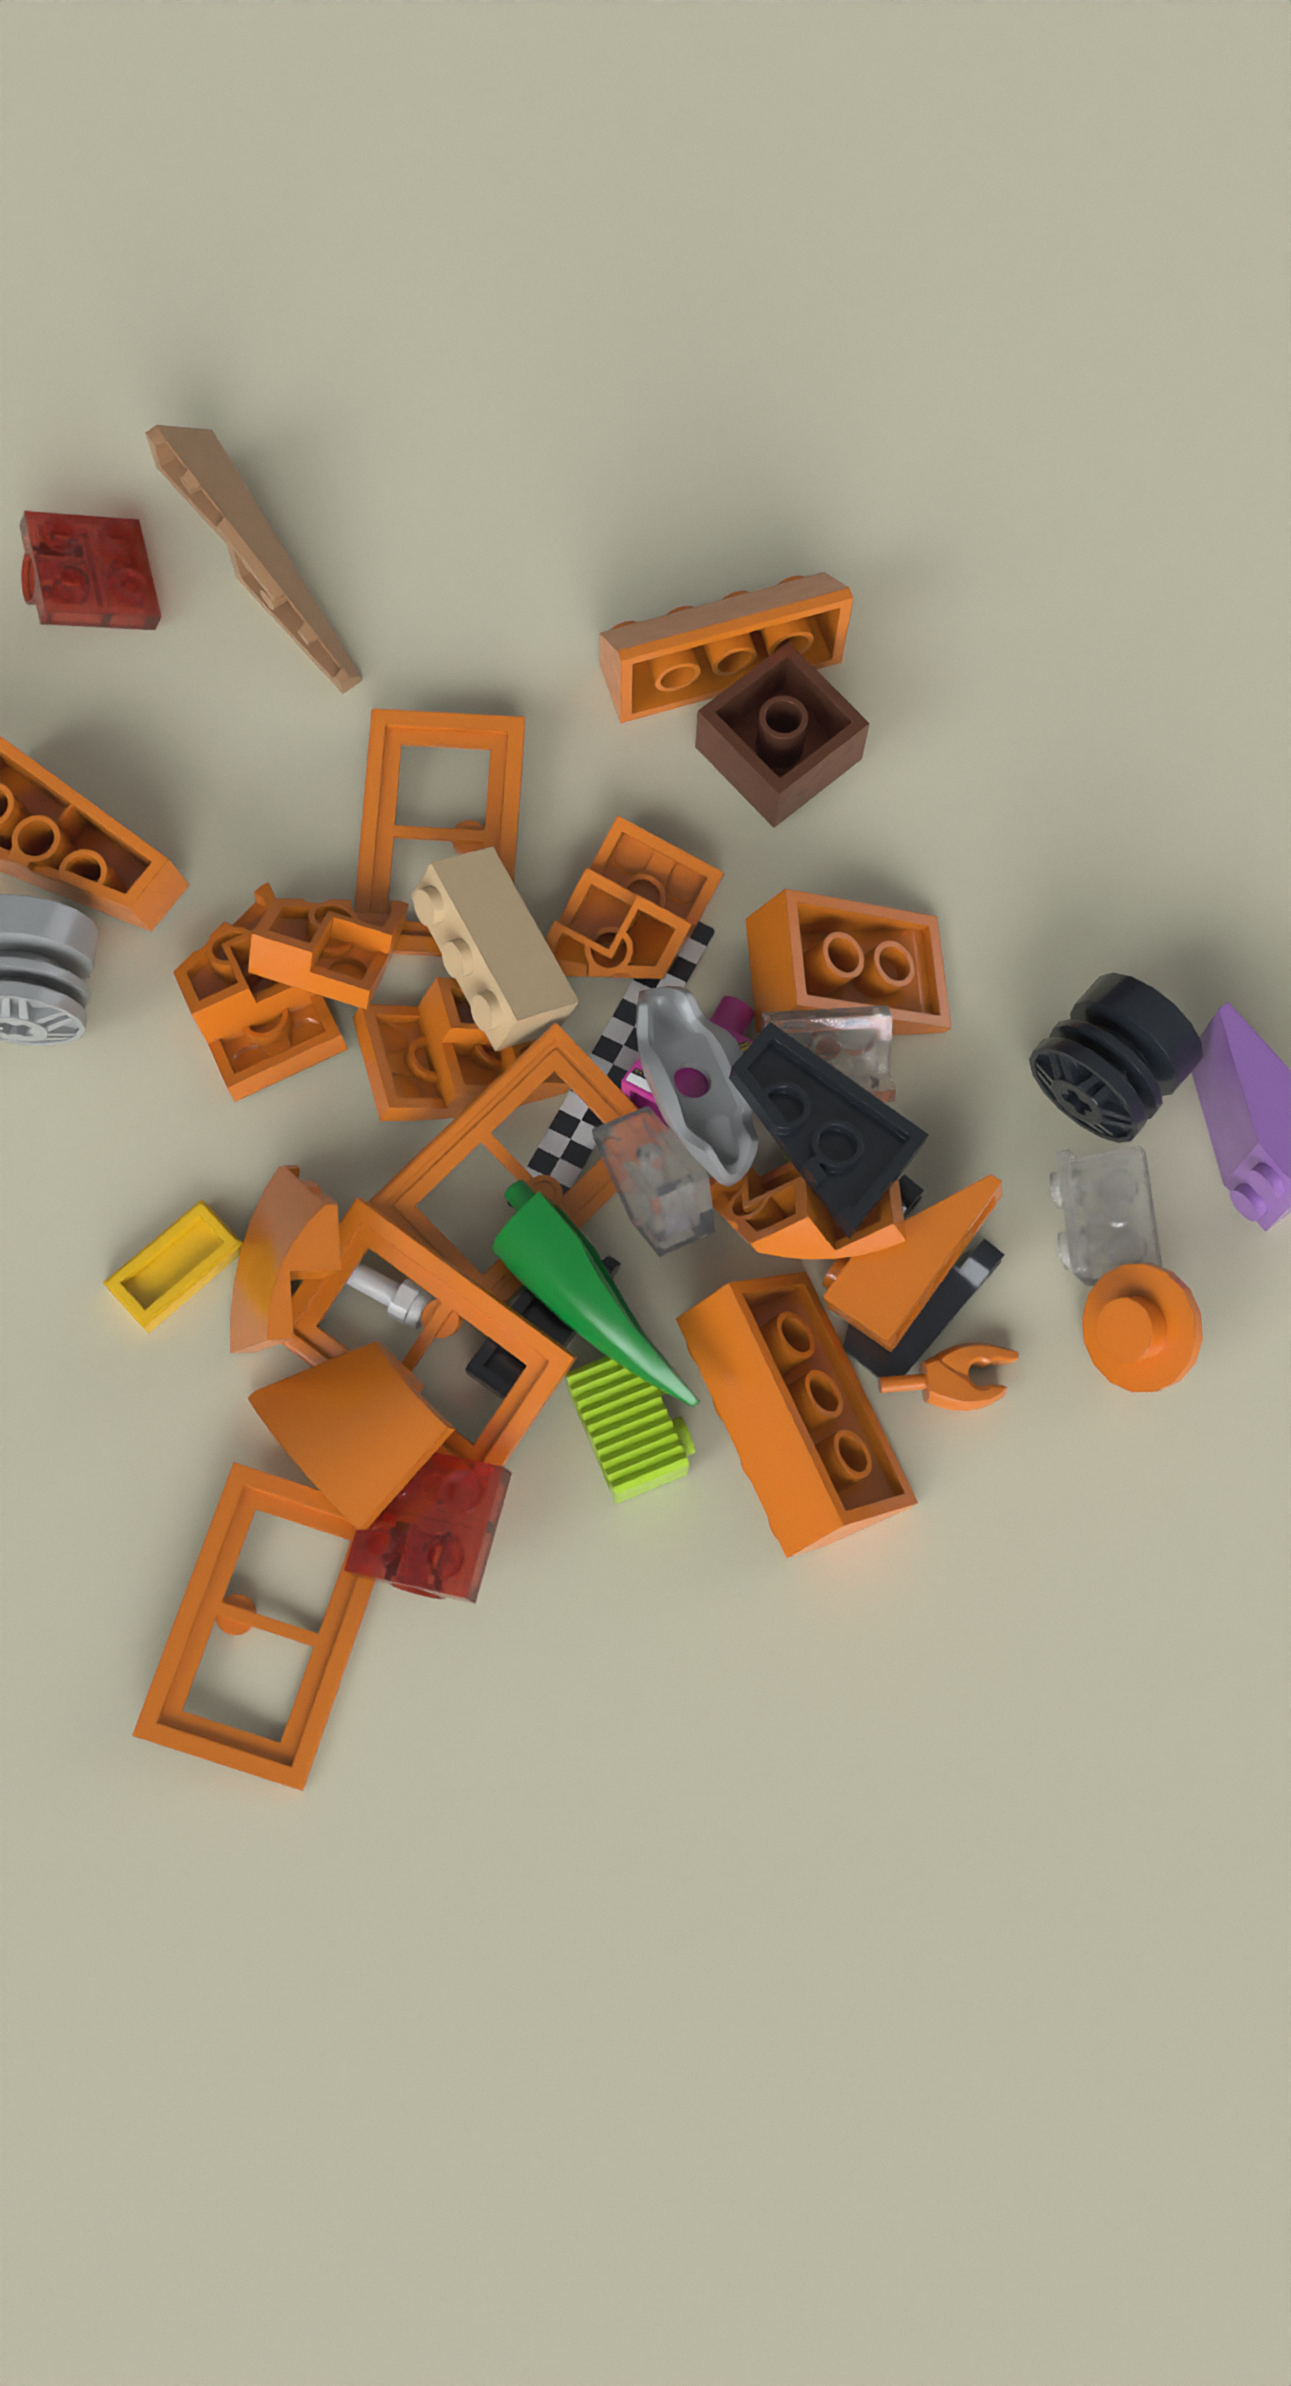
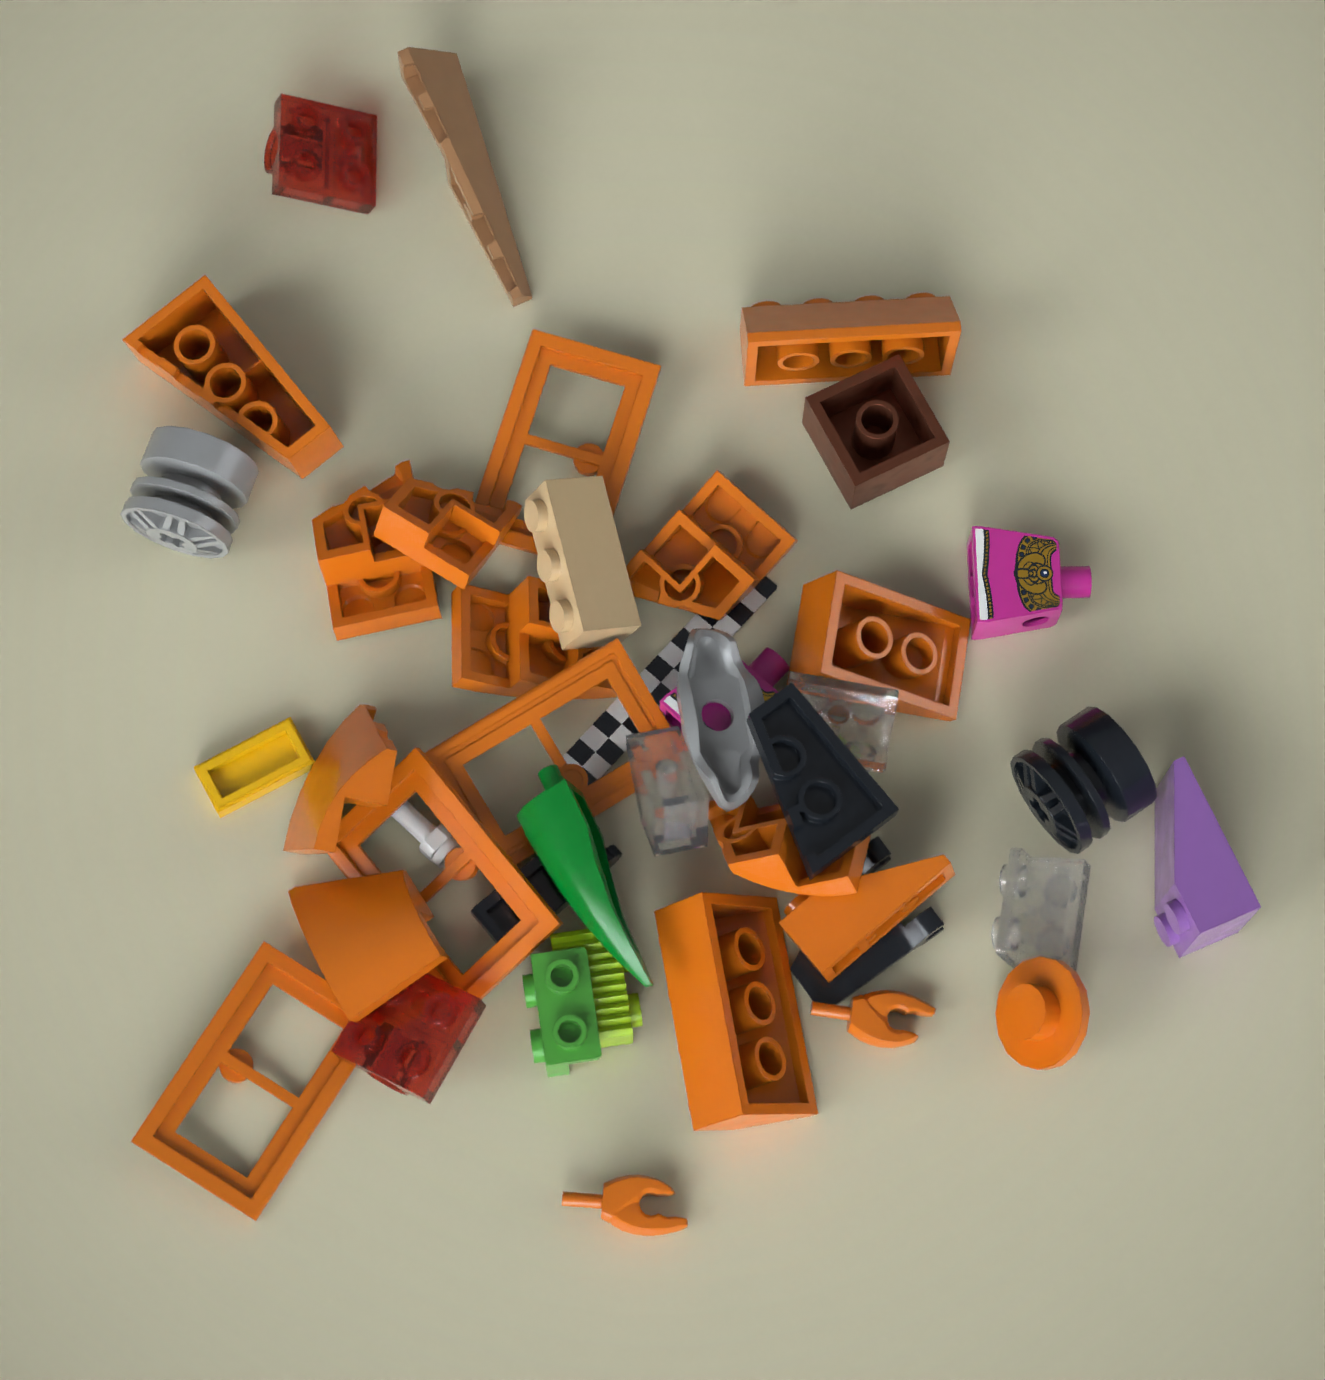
camera: 15 degrees right, 0 degrees up
(604, 1455) = (565, 1009): none -> bright green bracket
(724, 1664) = (622, 1205): none -> orange hand
(979, 862) = (1018, 582): none -> dark pink torso

